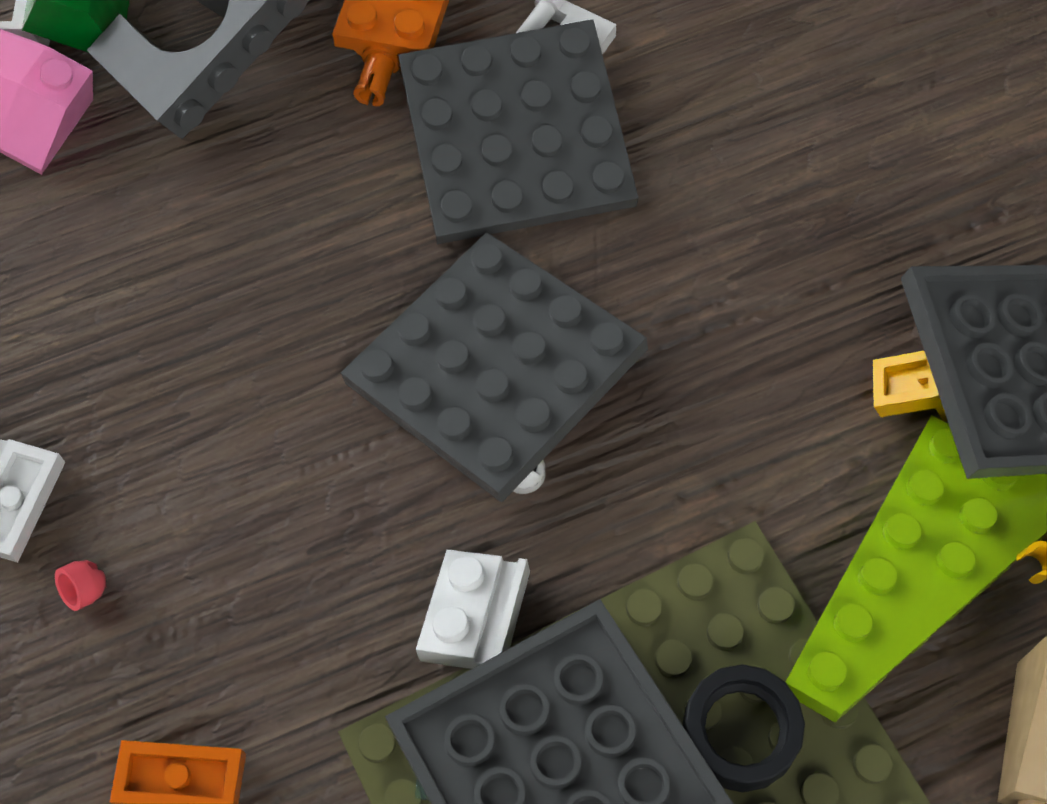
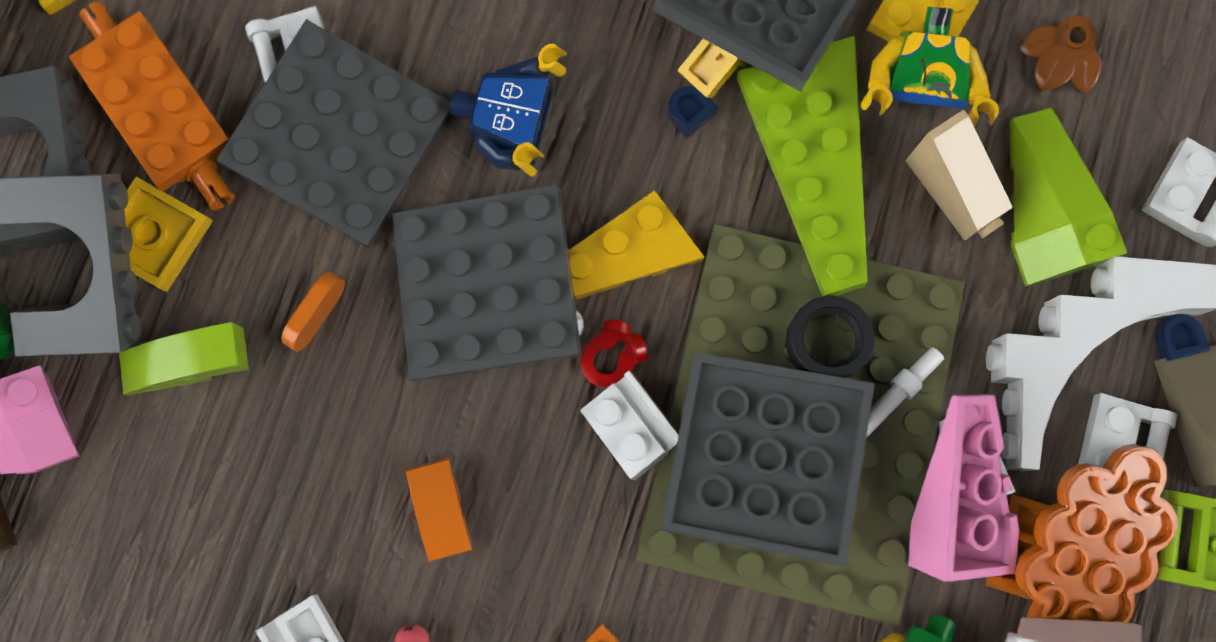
camera: 50 degrees left, 15 degrees up
(199, 179) = (184, 358): none -> lime slope
(233, 499) = (438, 509): none -> orange slope
(294, 73) = (161, 232): none -> yellow plate
(332, 241) = (312, 311): none -> orange tile
(552, 517) = (611, 333): none -> red piece
(656, 463) = (631, 247): none -> yellow wing
(683, 248) = (512, 110): none -> torso
(848, 407) = (690, 110): none -> dark blue tile

